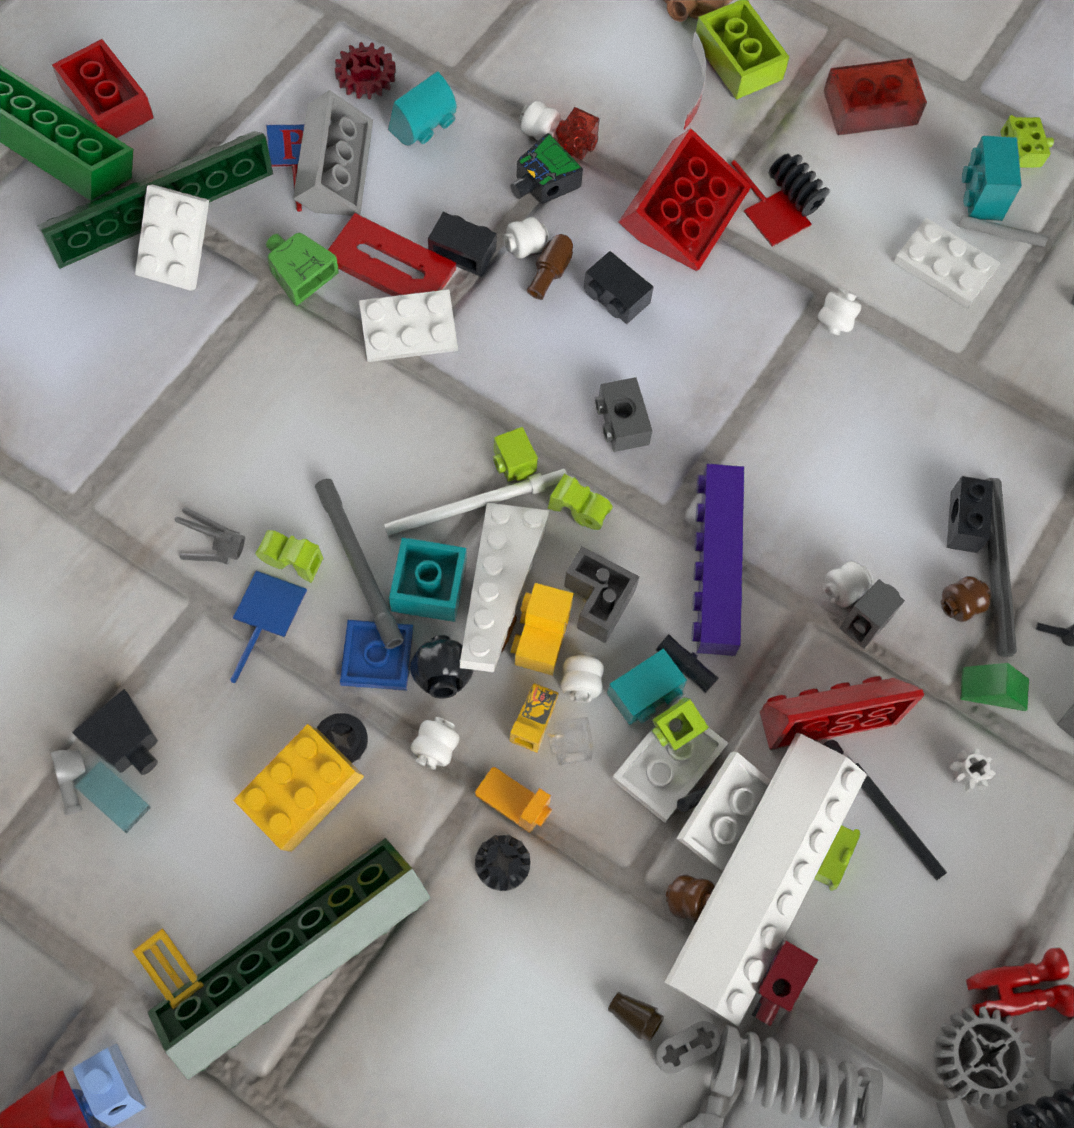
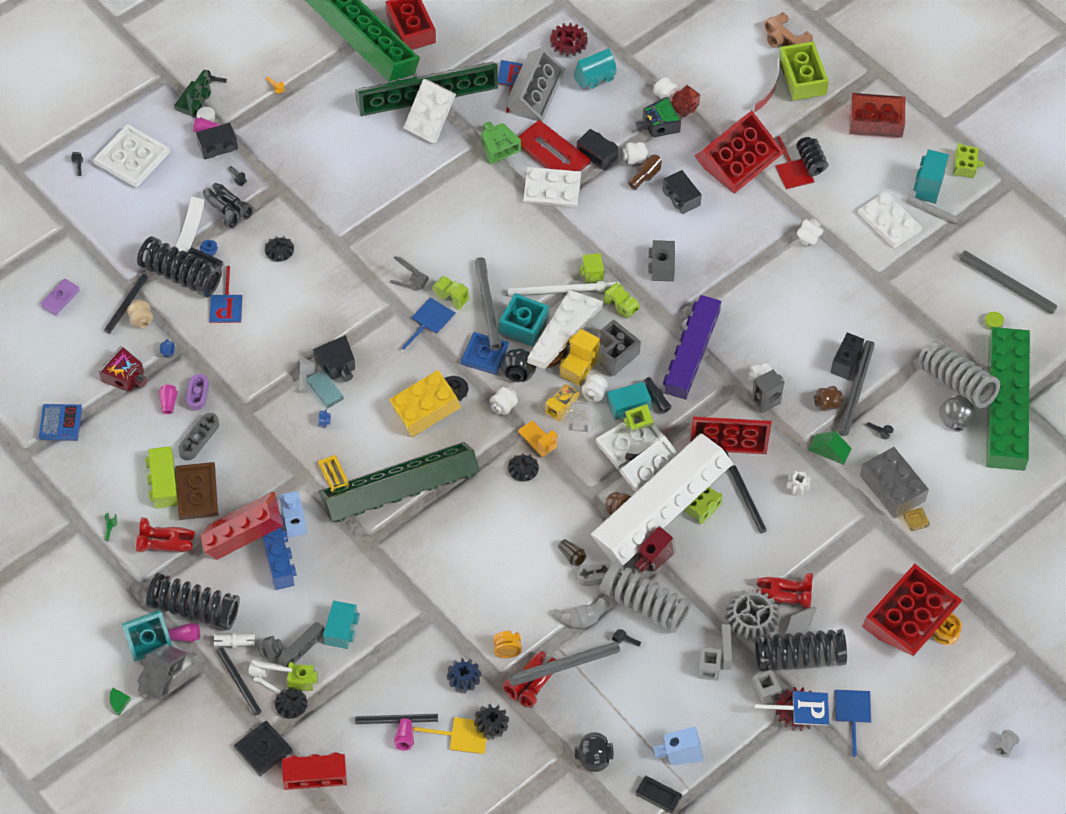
camera: 20 degrees right, 10 degrees down
(124, 859) = (324, 418): none -> blue plate

